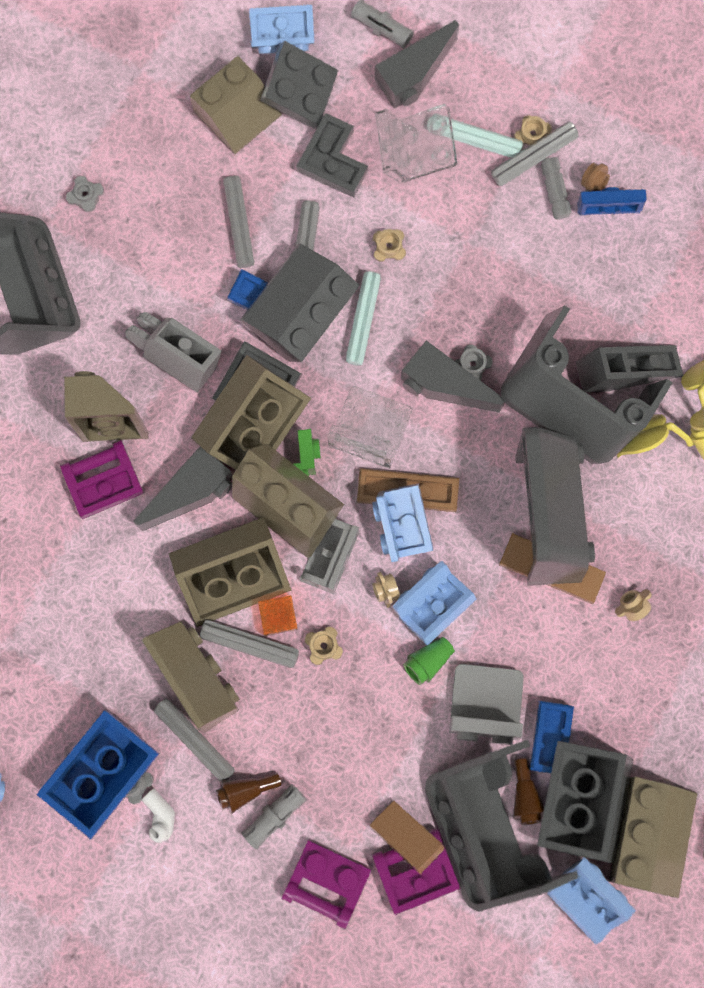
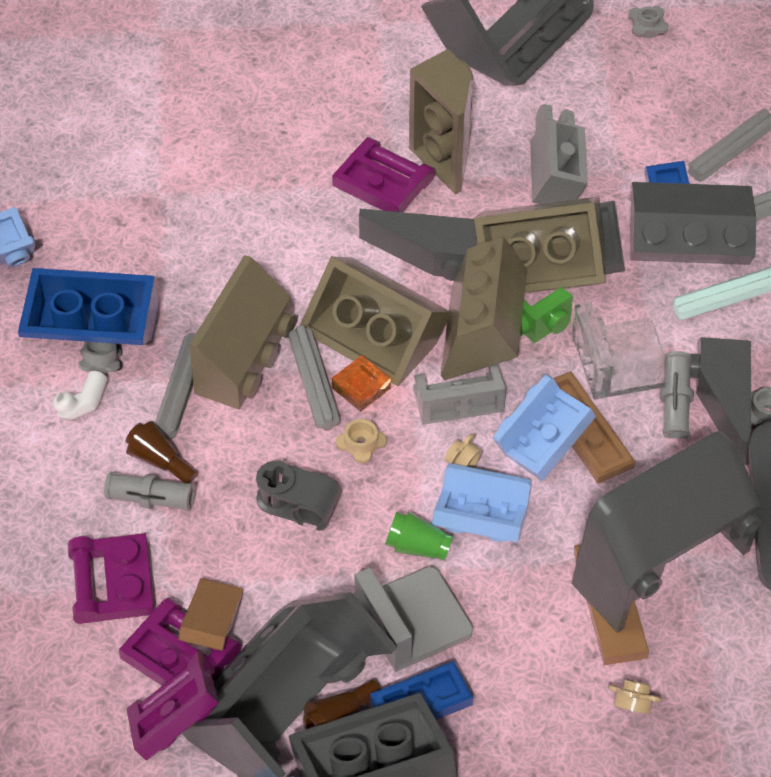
camera: 55 degrees right, 25 degrees down
(350, 715) = (300, 495): none -> dark grey piece
(447, 430) = (677, 370): none -> light grey pin
(479, 909) = (173, 707): none -> magenta plate

